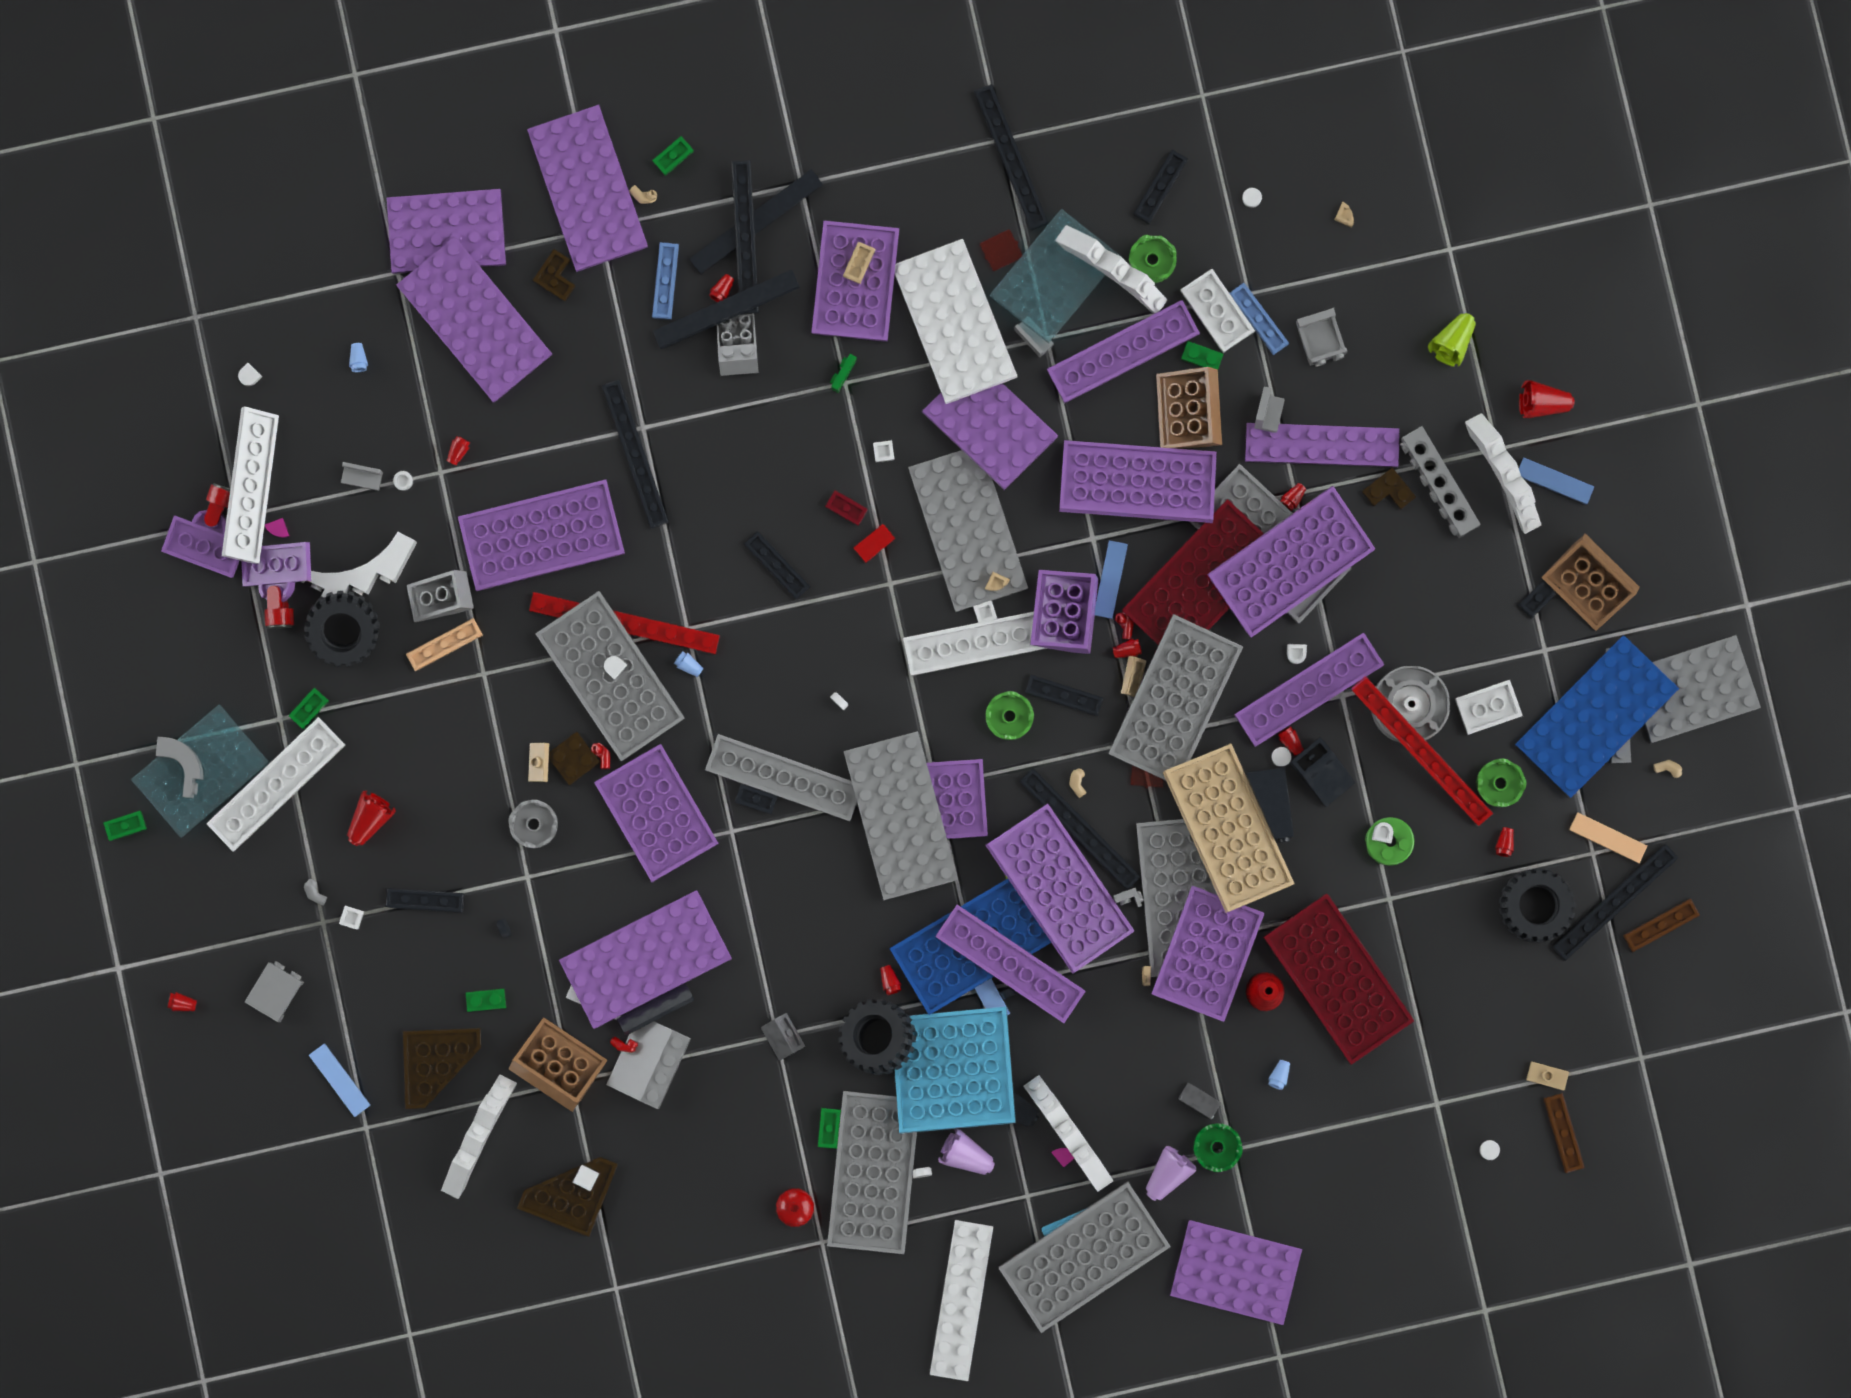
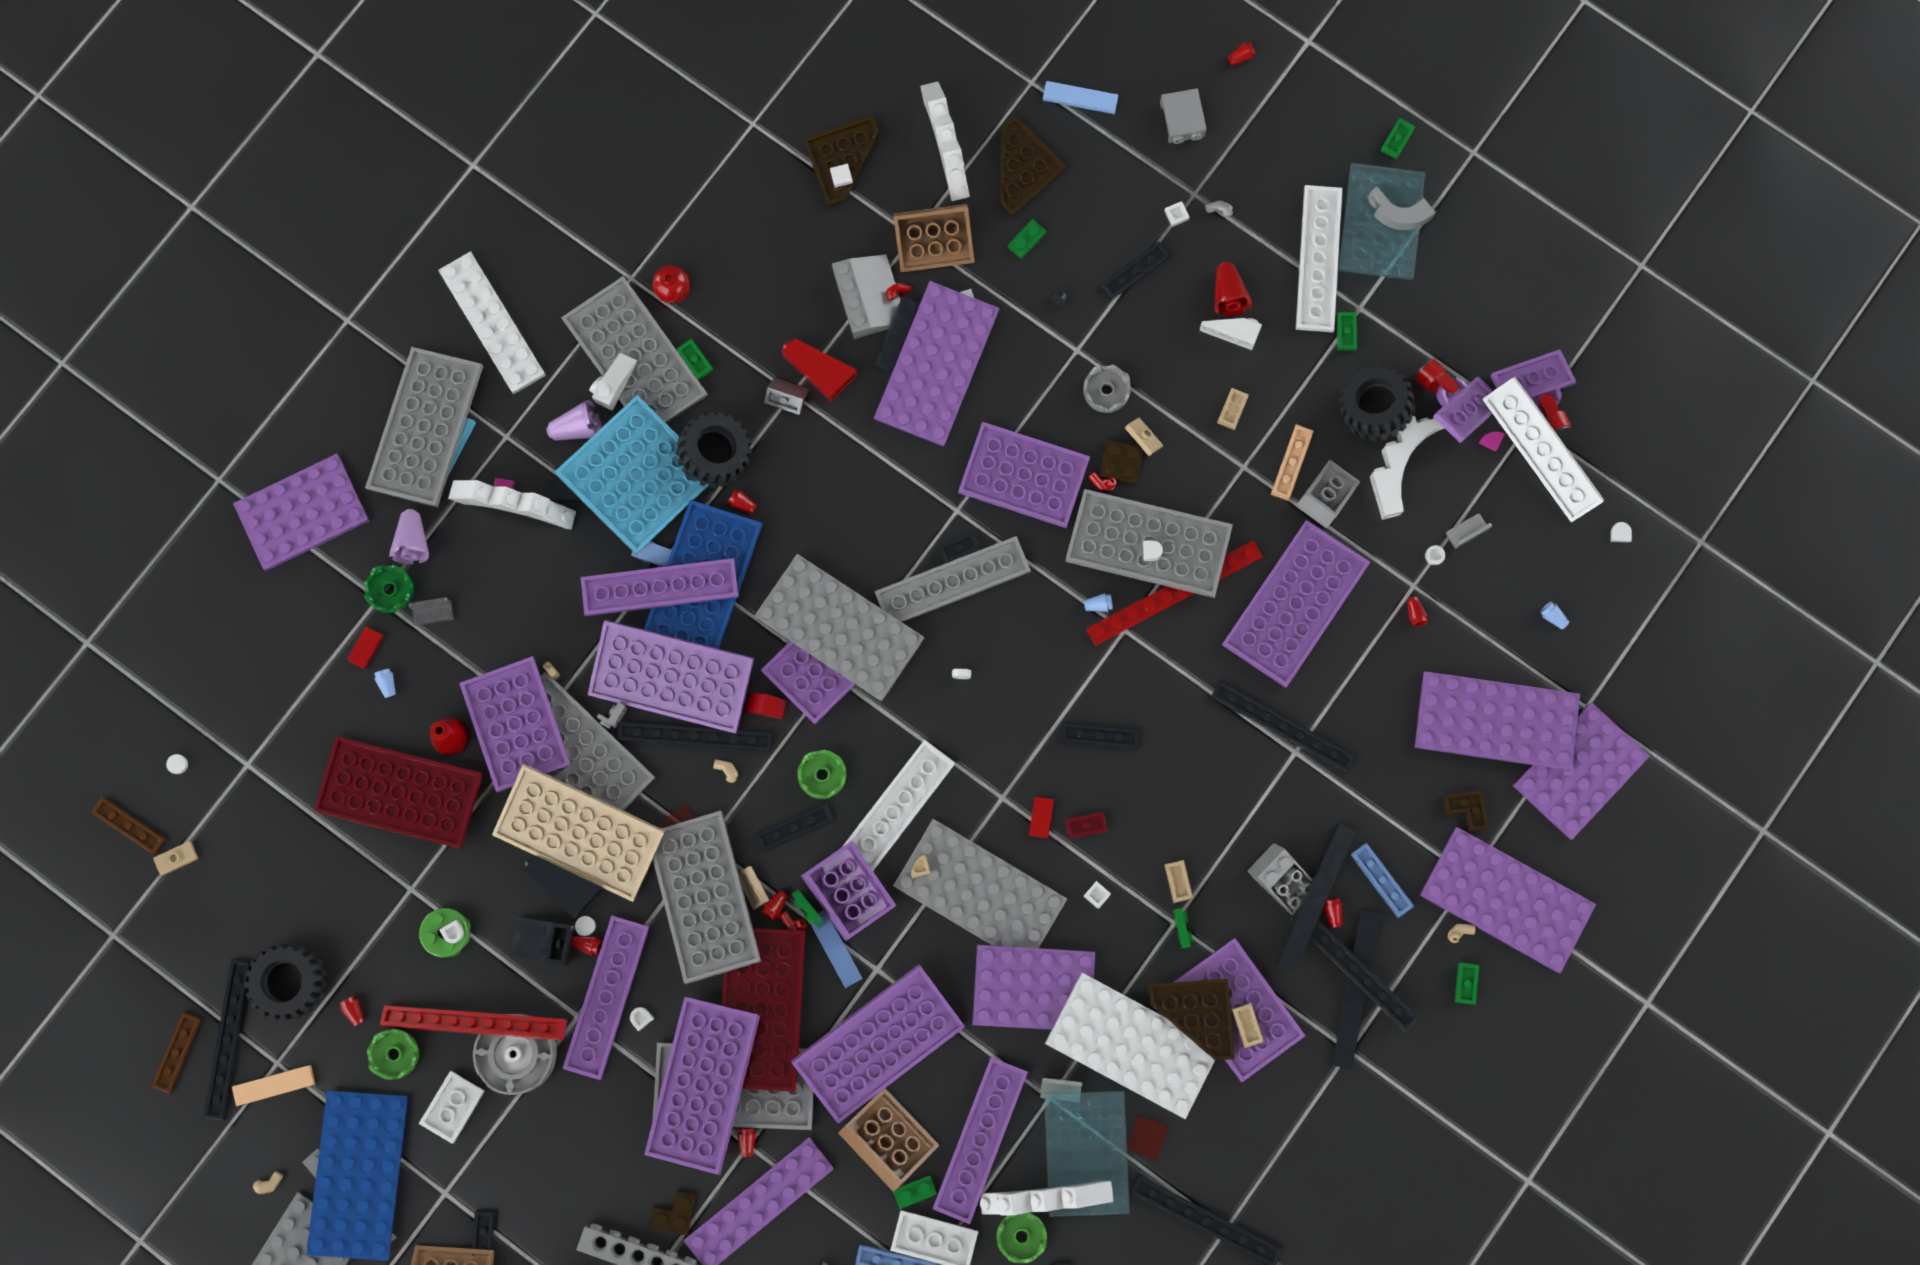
camera: 140 degrees right, 5 degrees down
(391, 780) = (1237, 331): none -> white slope
(451, 724) = (1233, 408): none -> tan plate
(739, 1033) = (820, 369): none -> red slope
(815, 408) = (1178, 881): none -> tan plate
(885, 302) = (1199, 1012): none -> dark brown plate
(905, 1162) = (614, 381): none -> white slope
(985, 612) = (910, 838): white tile -> none
(1007, 806) = (765, 705): none -> red slope
(1106, 631) = (802, 904): none -> green plate
(1269, 412) = (822, 1193): light grey panel -> none
(1273, 1117) = (365, 647): none -> red tile

